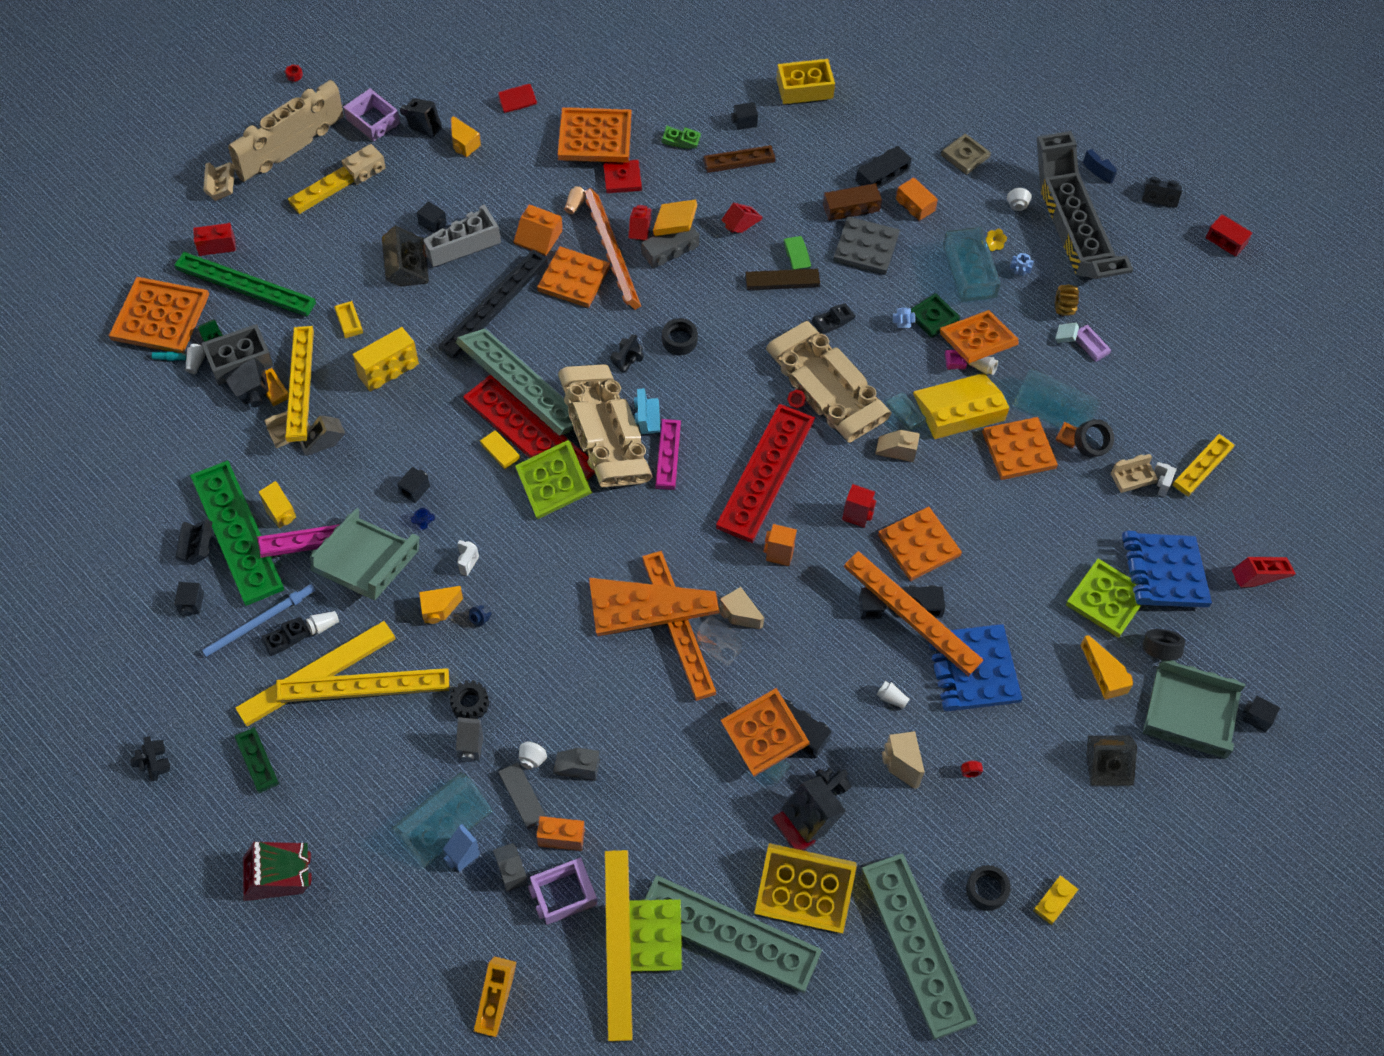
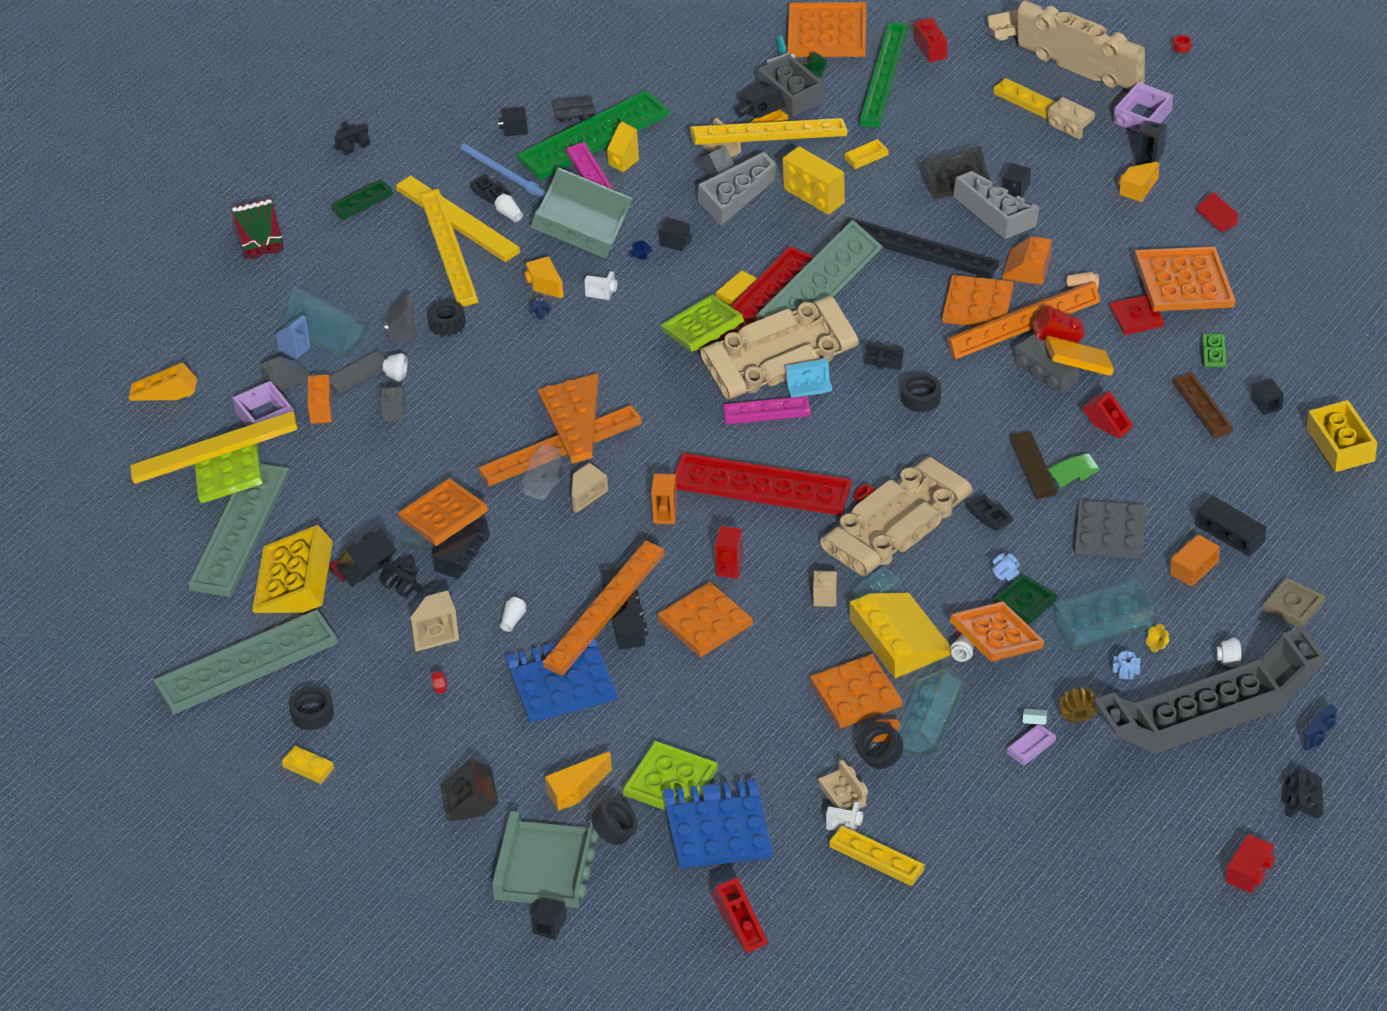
camera: 85 degrees right, 15 degrees down
(371, 426) = (736, 187): none -> light grey wedge
(852, 202) = (1167, 504): reddish brown brick -> none

